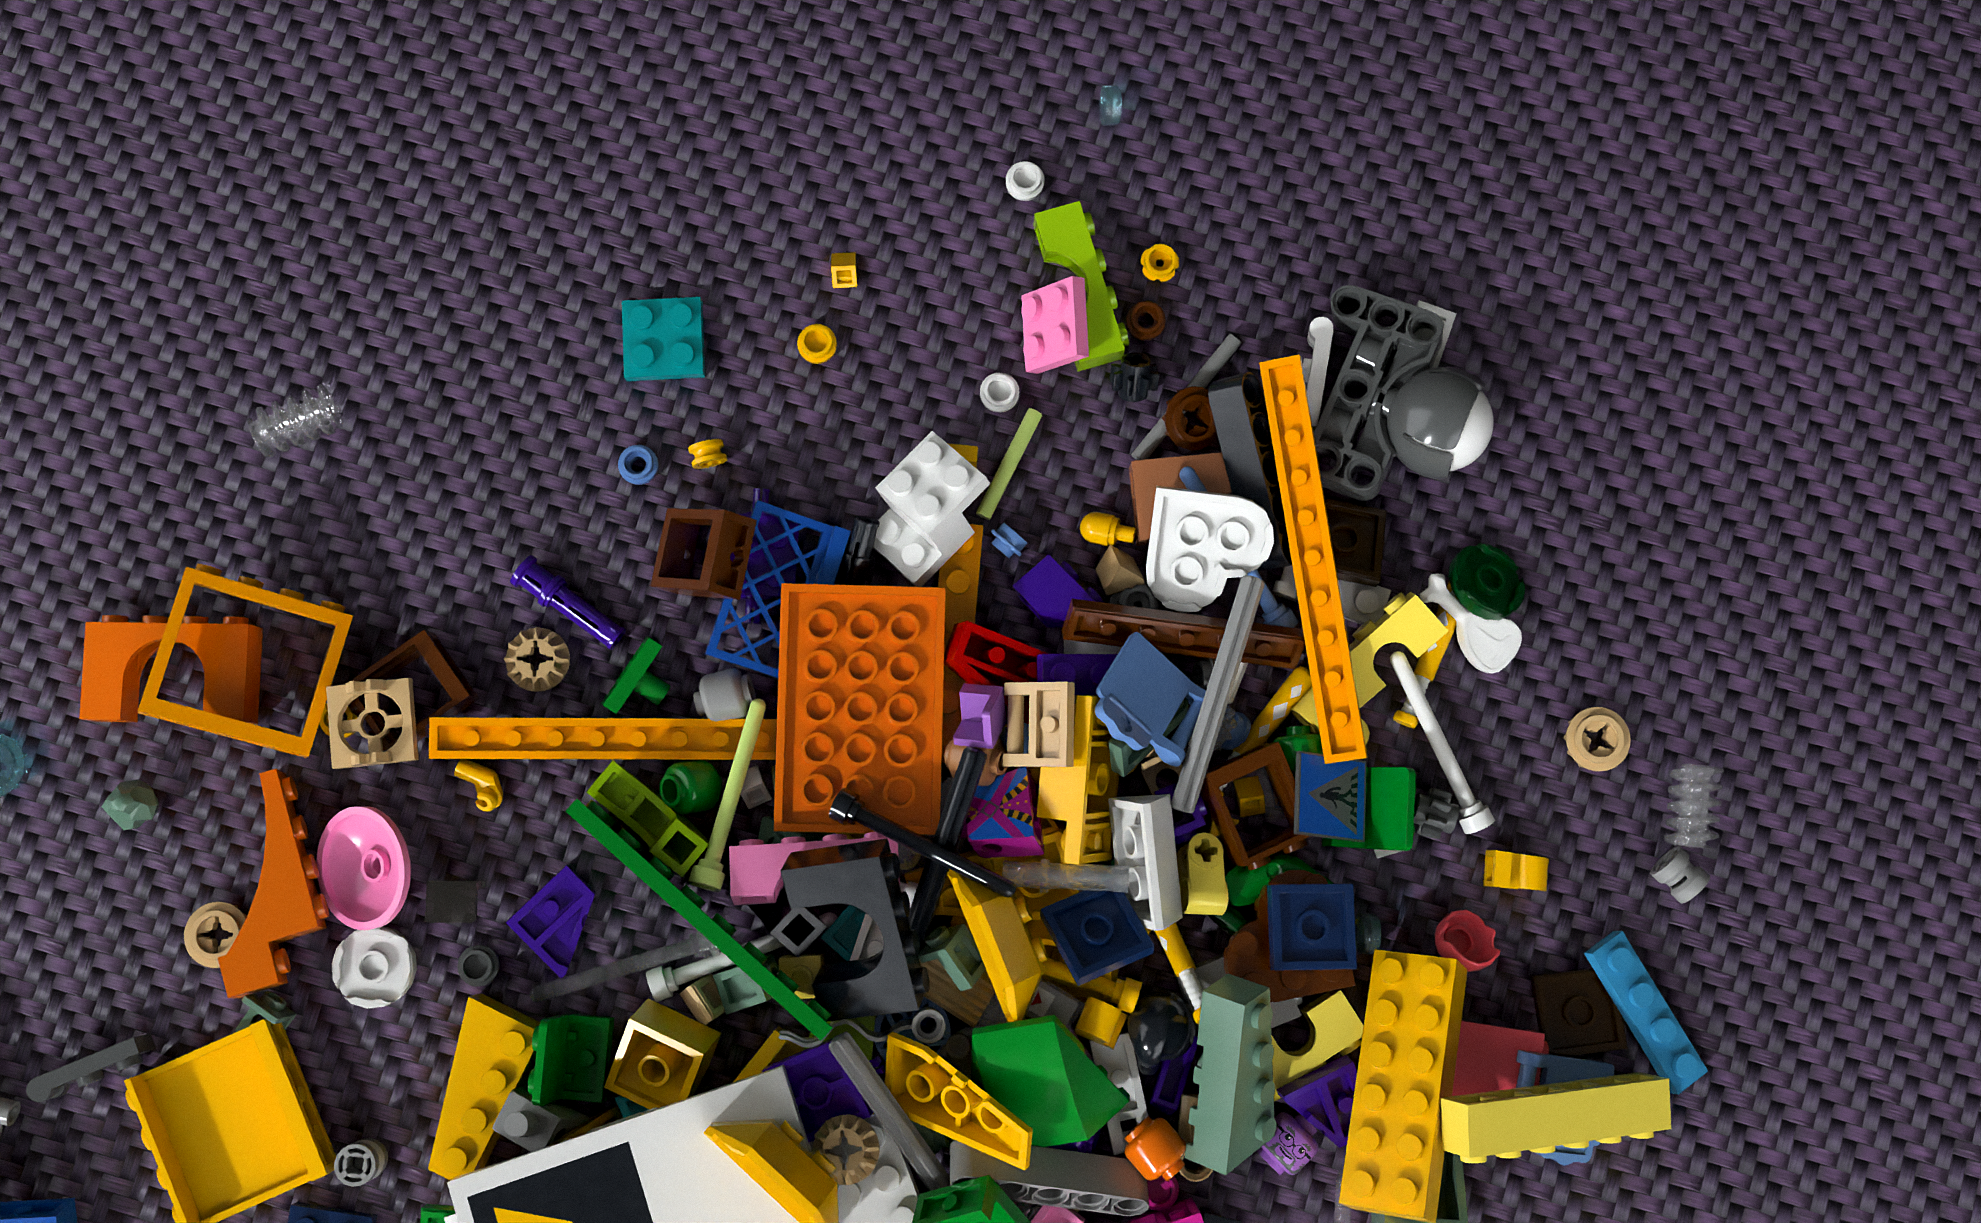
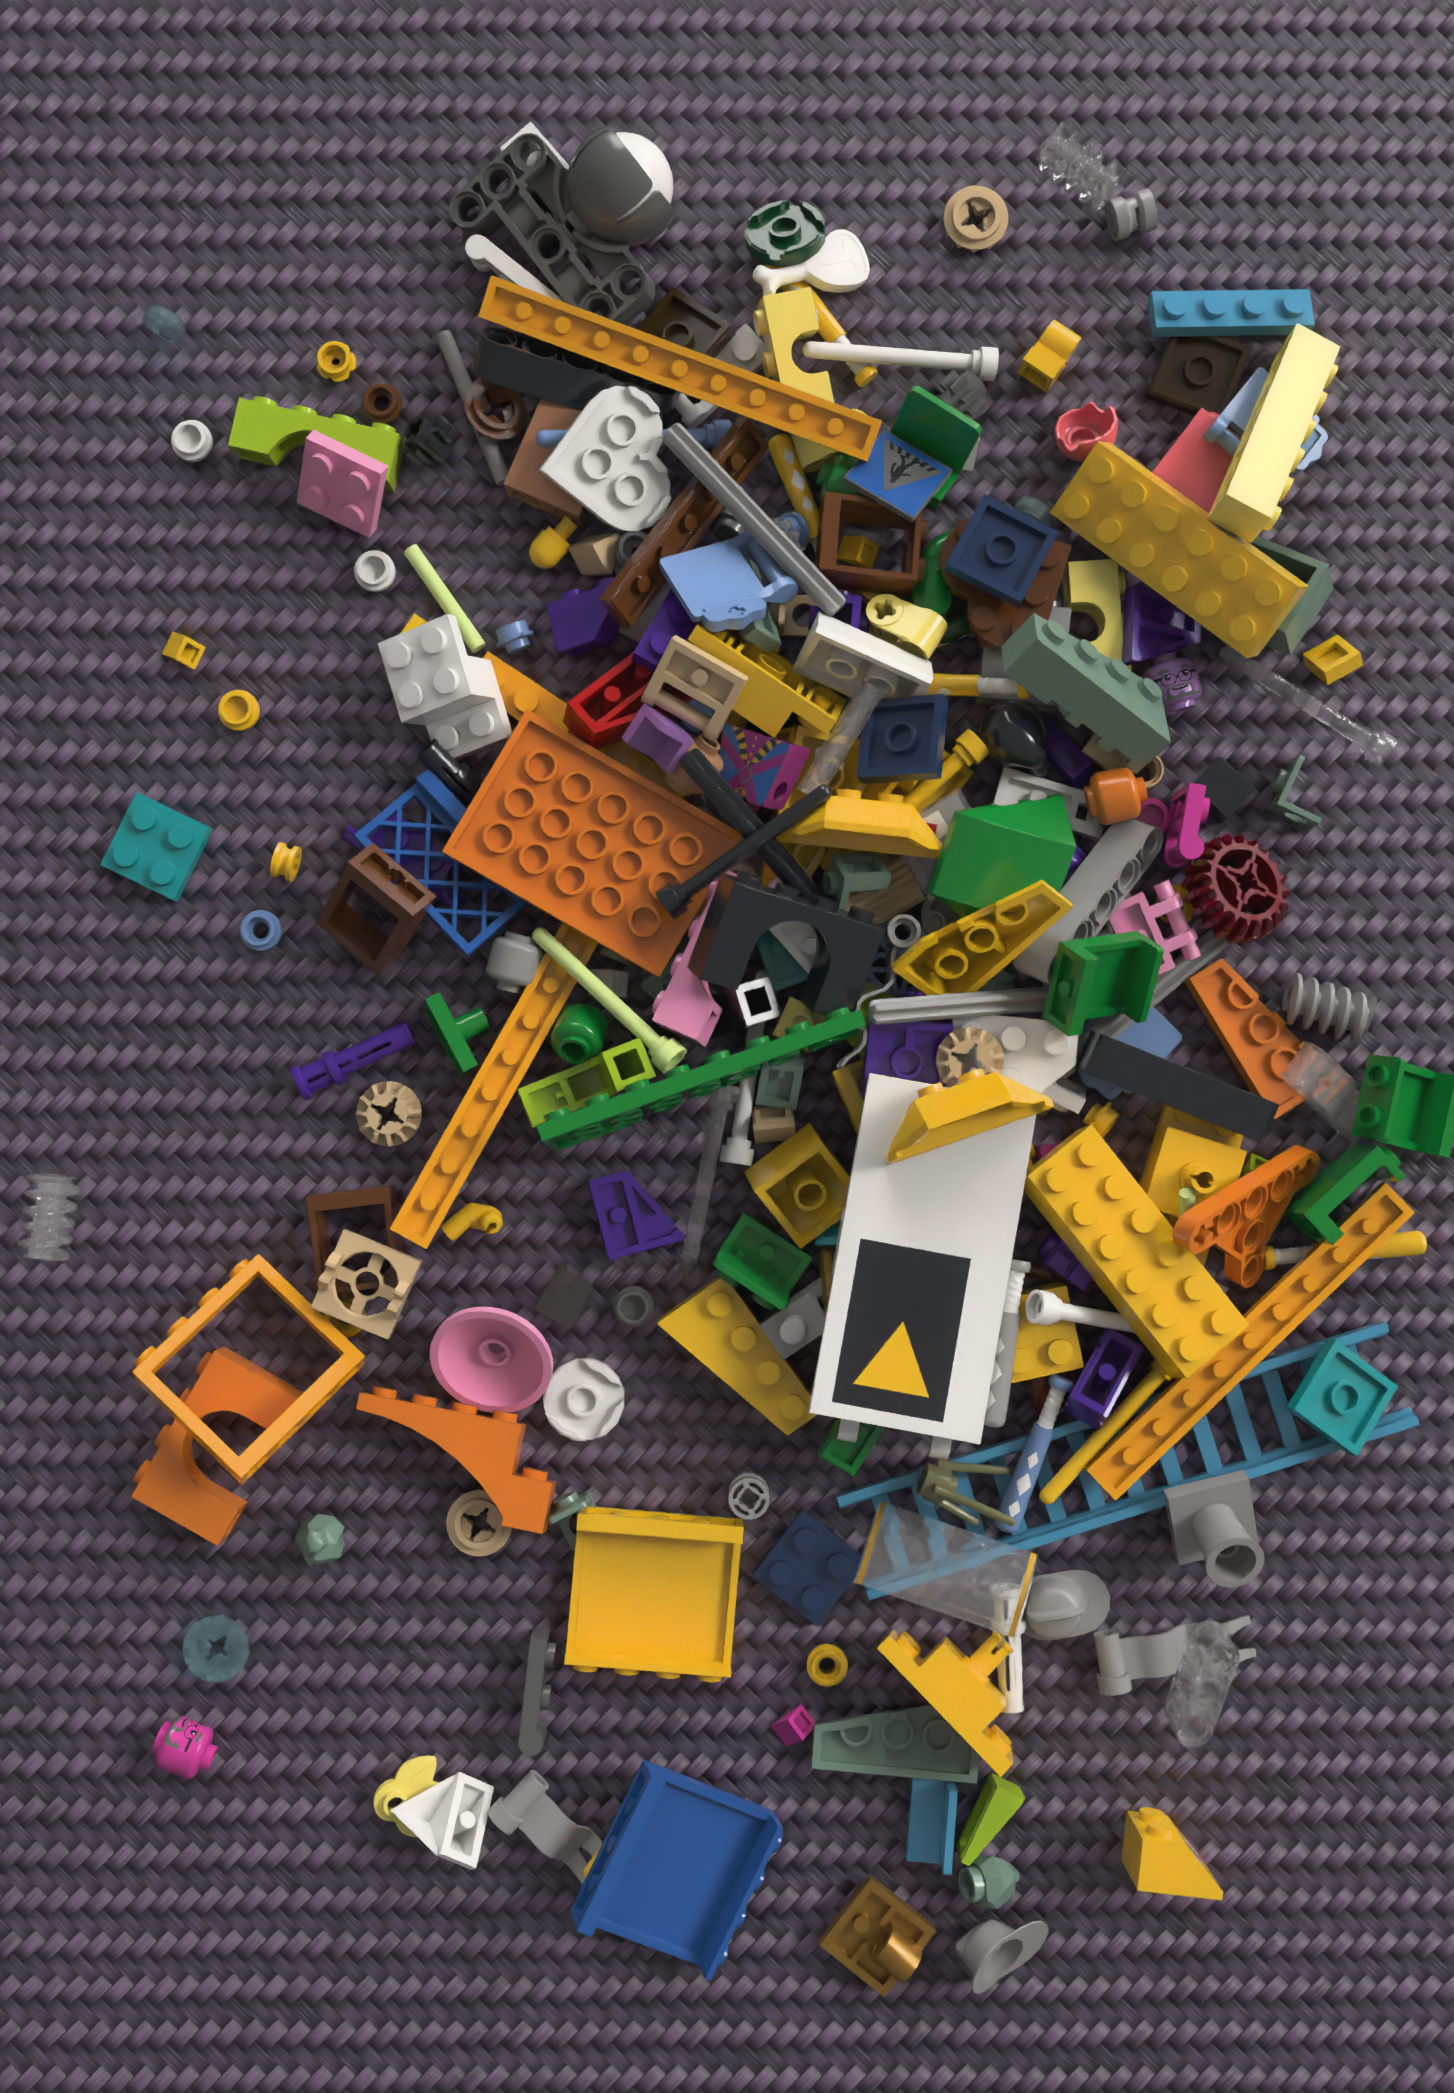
camera: 60 degrees left, 5 degrees up
(1100, 1022) = (981, 783): yellow leg -> none

